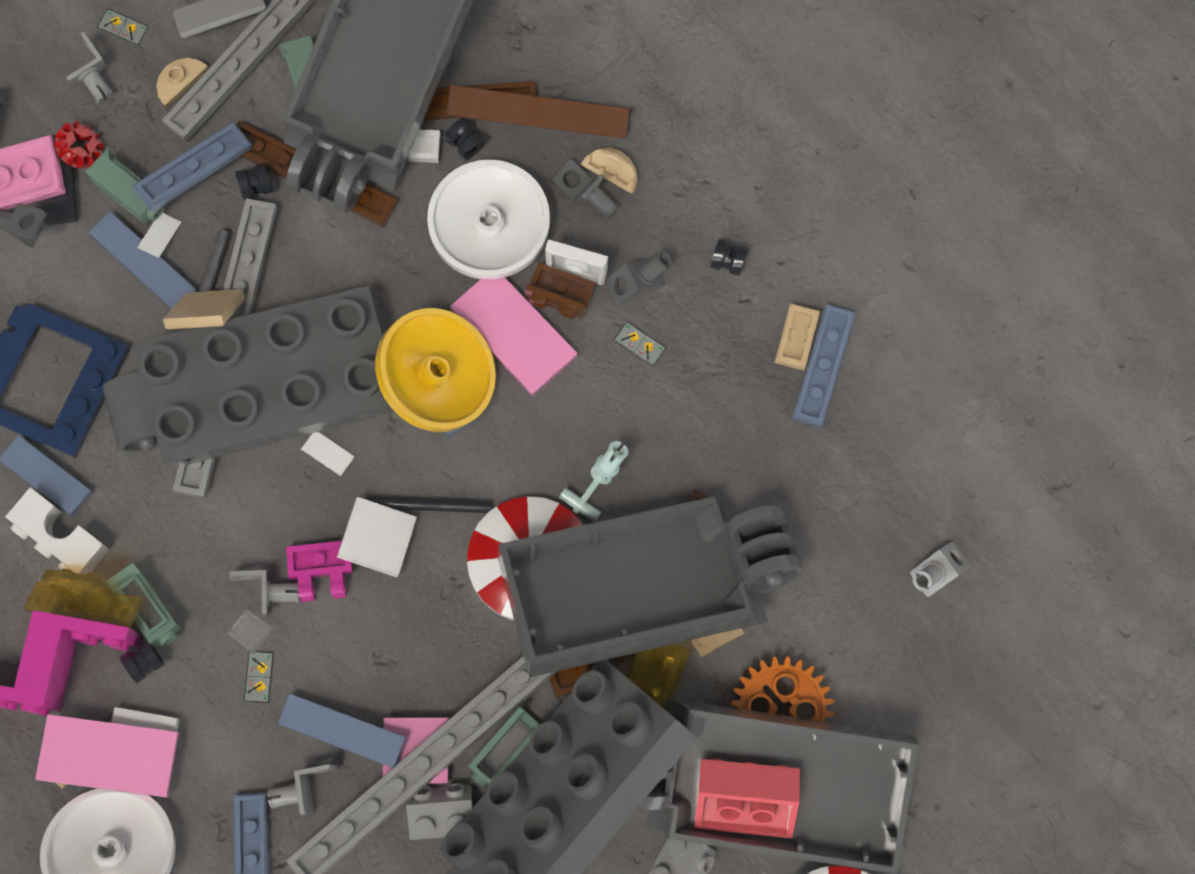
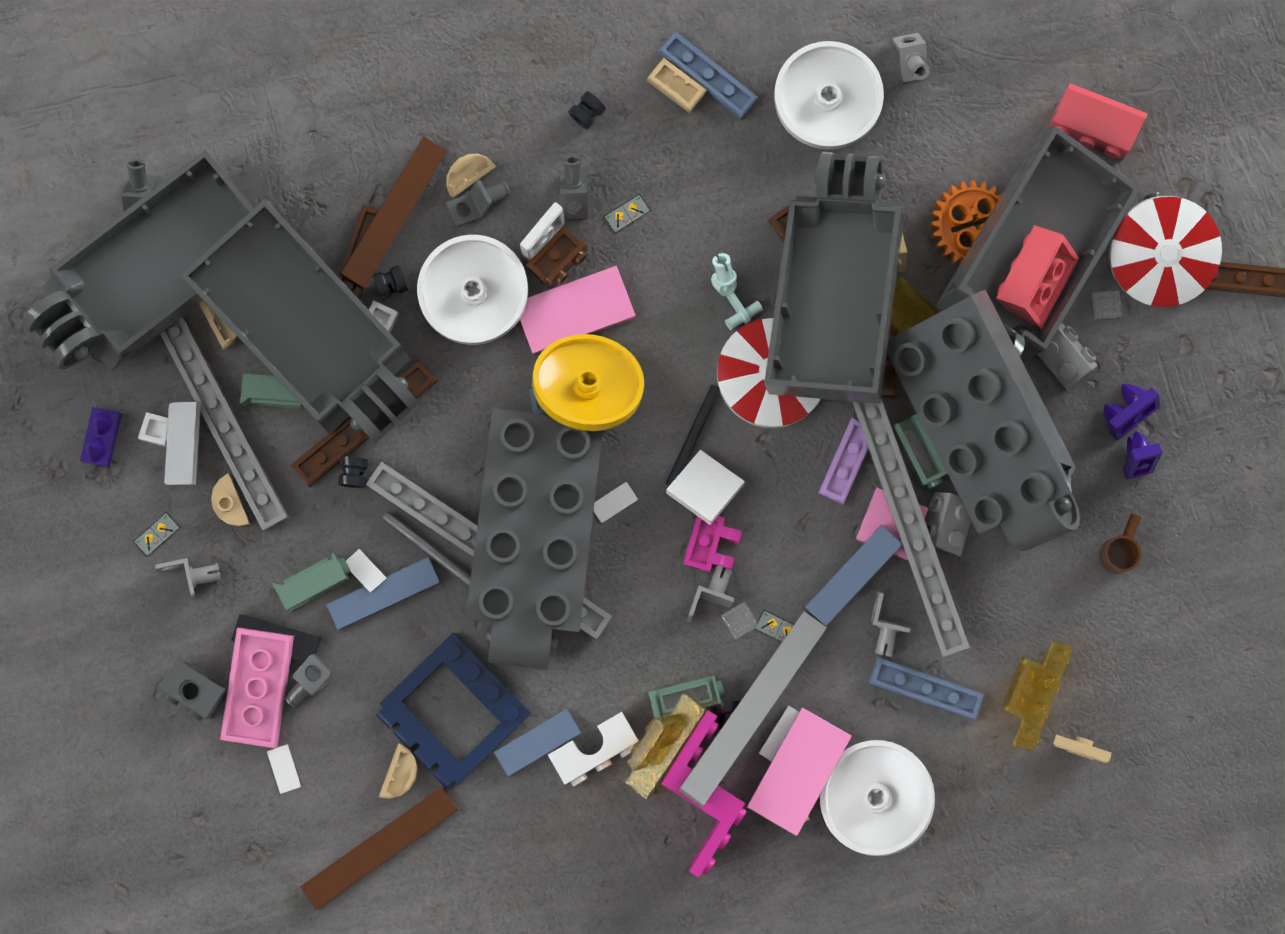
camera: 65 degrees left, 5 degrees up
(77, 156) = (246, 617): red gear -> none
(152, 677) = (752, 709): none -> light grey tile
(192, 167) = (320, 517): sand blue tile -> none
(204, 309) = (455, 552): tan tile -> none
(458, 675) = (845, 464): none -> lavender tile
(855, 496) = (828, 95): none -> white dish
(954, 797) = (1098, 121): none -> coral slope

